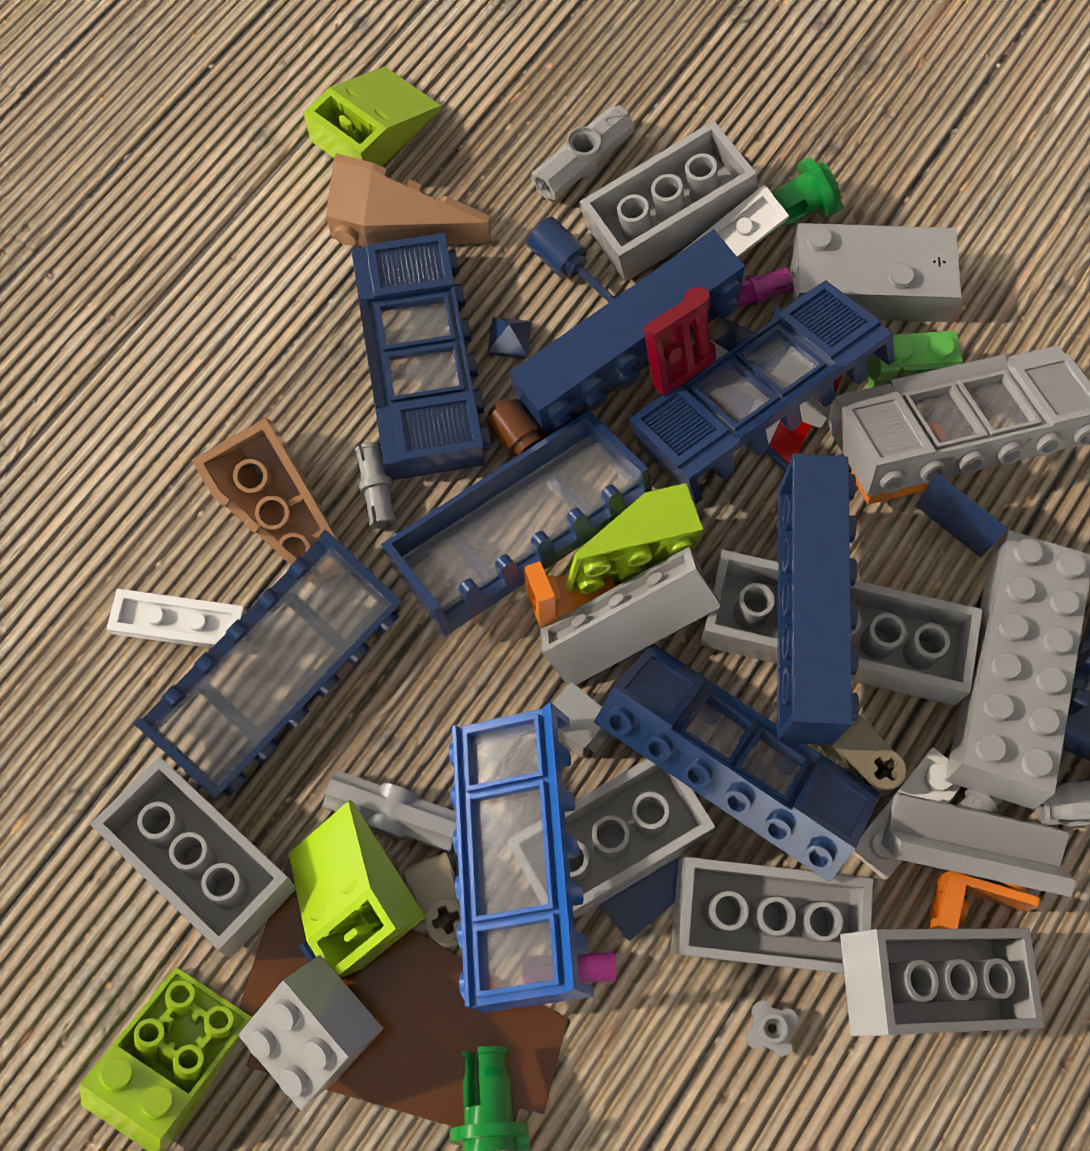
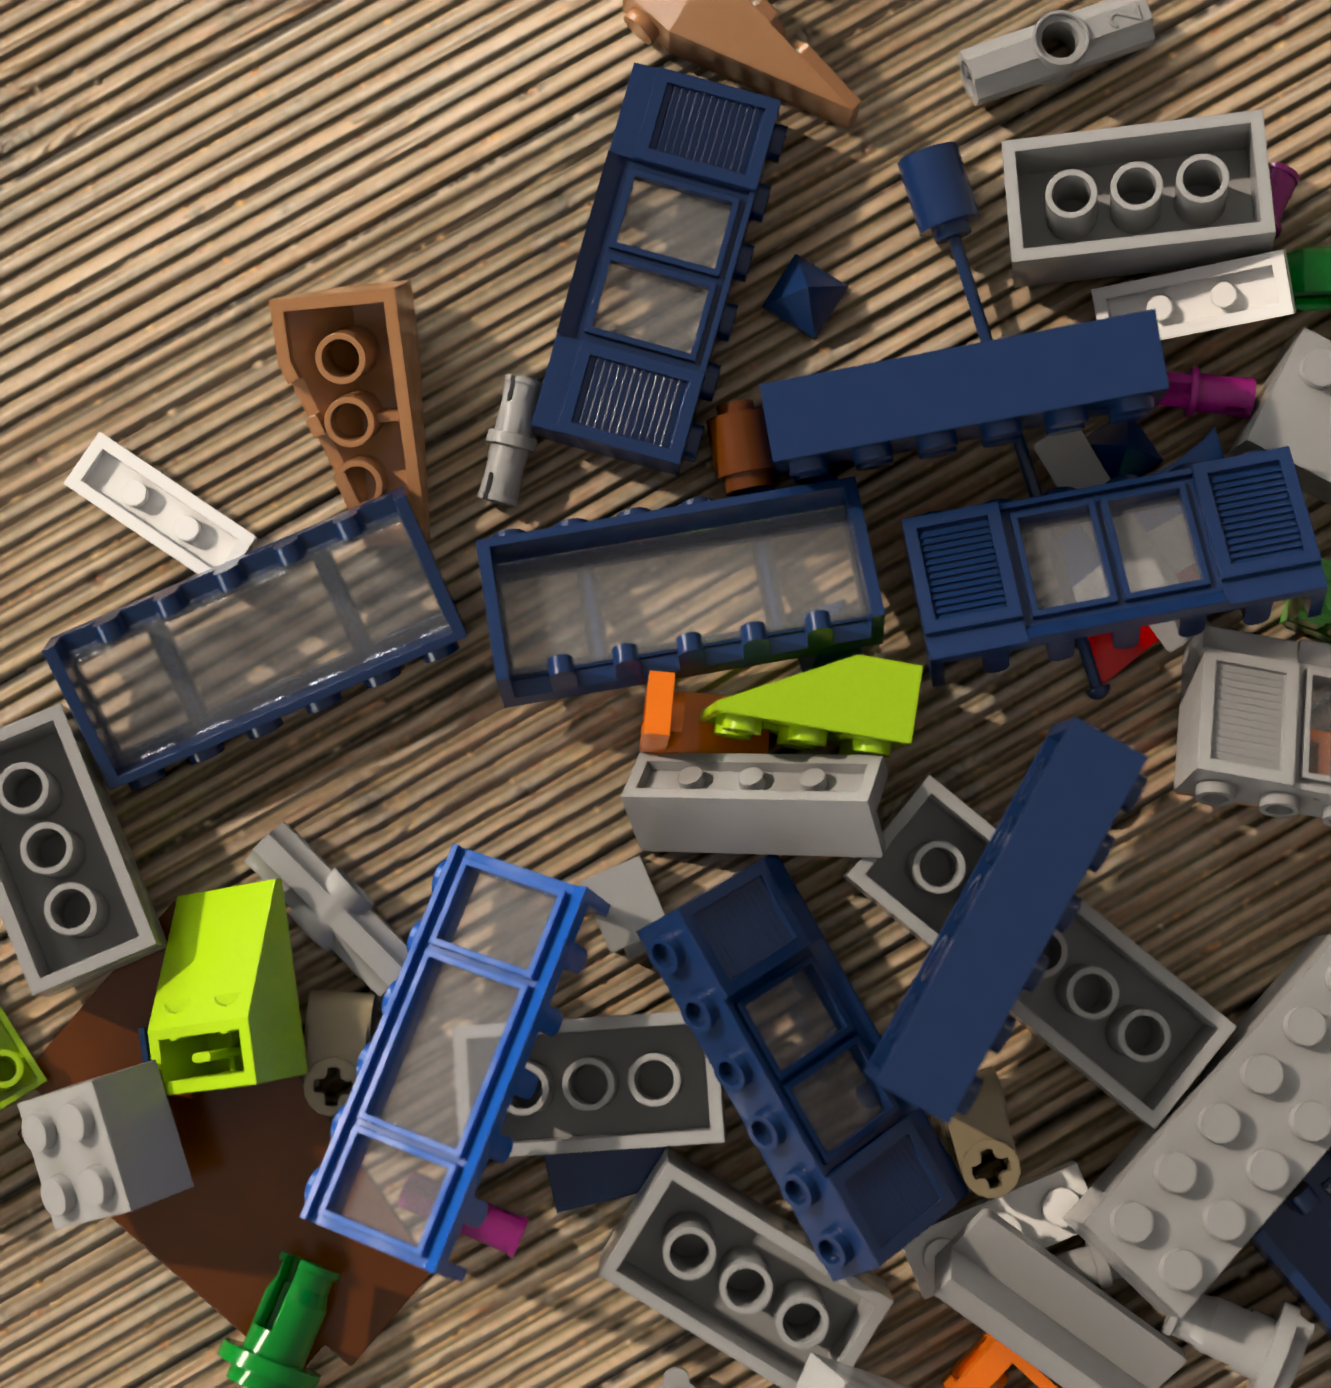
camera: 25 degrees right, 15 degrees up
(670, 343) = (1005, 449): dark red plate -> none
(960, 516) = (1288, 878): dark blue piece -> none

